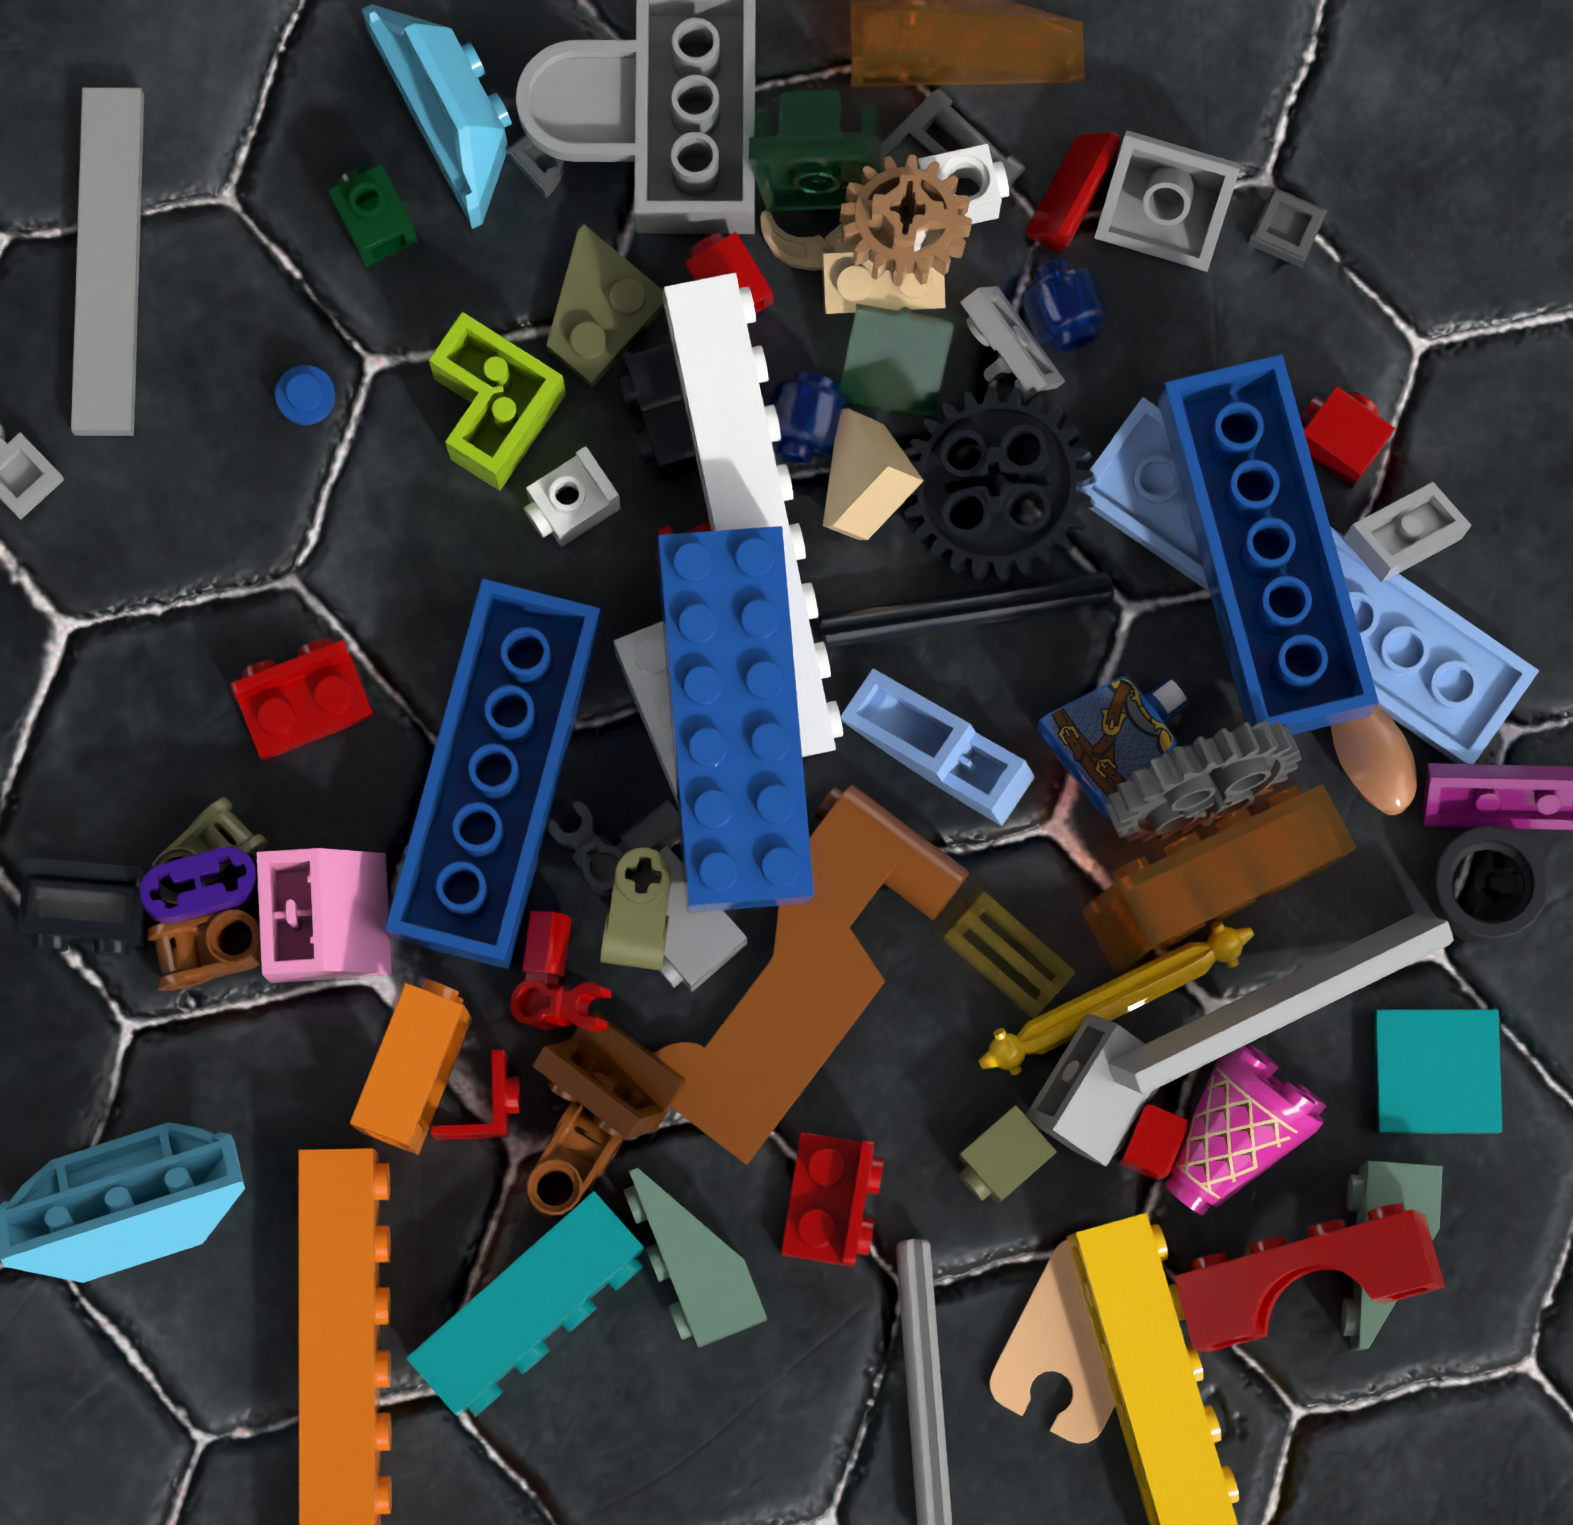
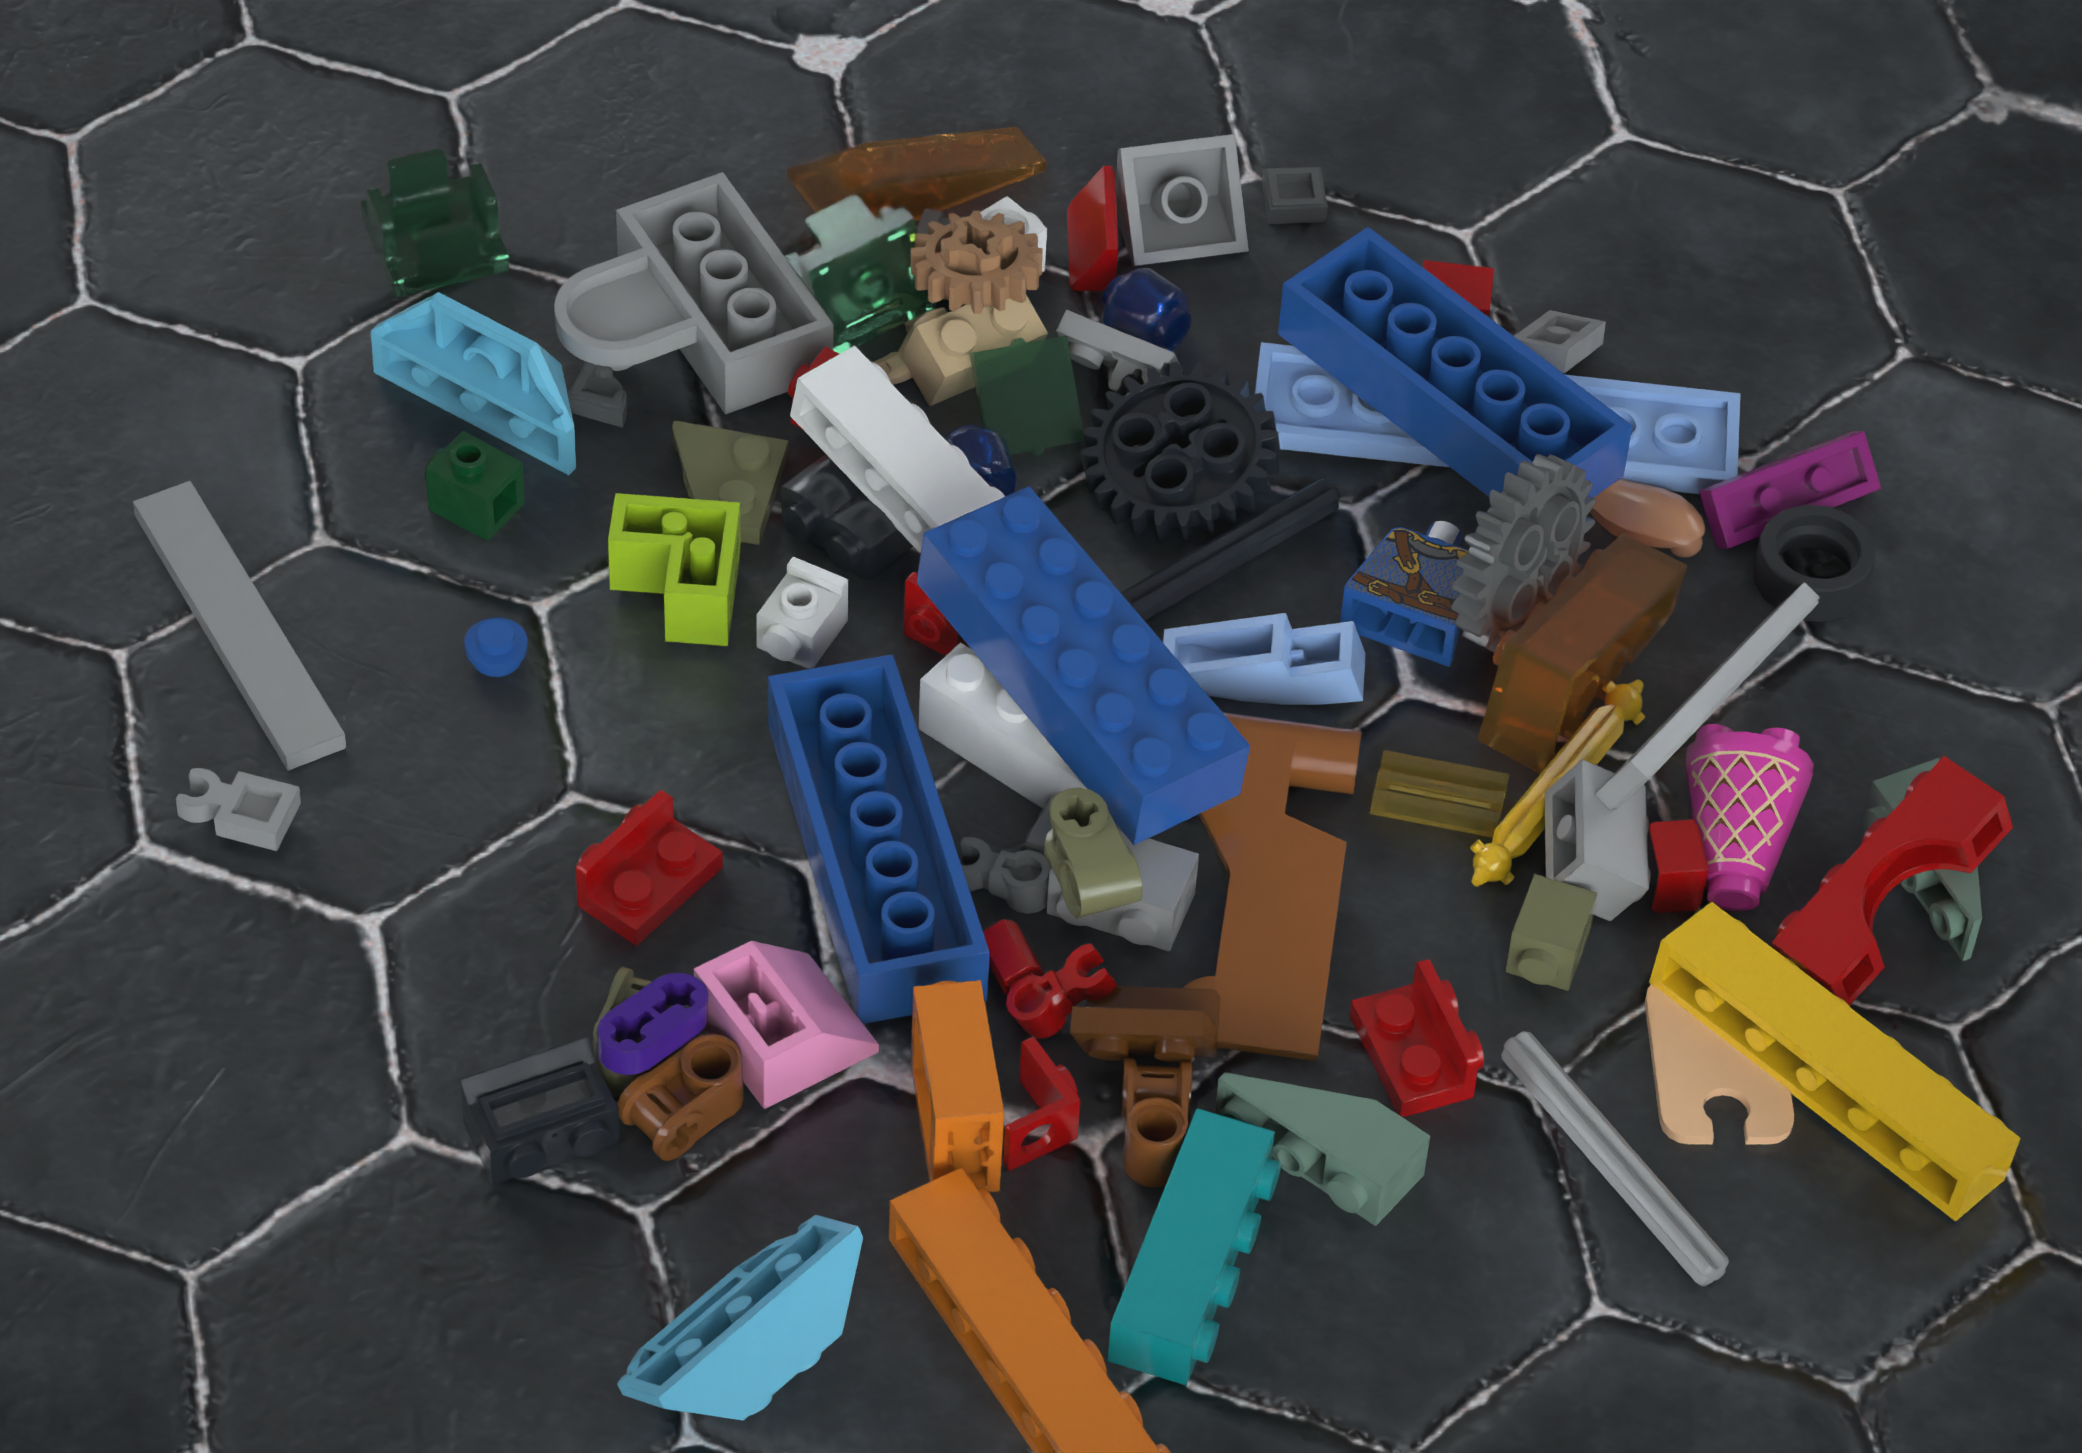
camera: 30 degrees left, 30 degrees down
(866, 477) = (1067, 481): tan slope -> none
(1437, 1072) = (1876, 717): teal tile -> none

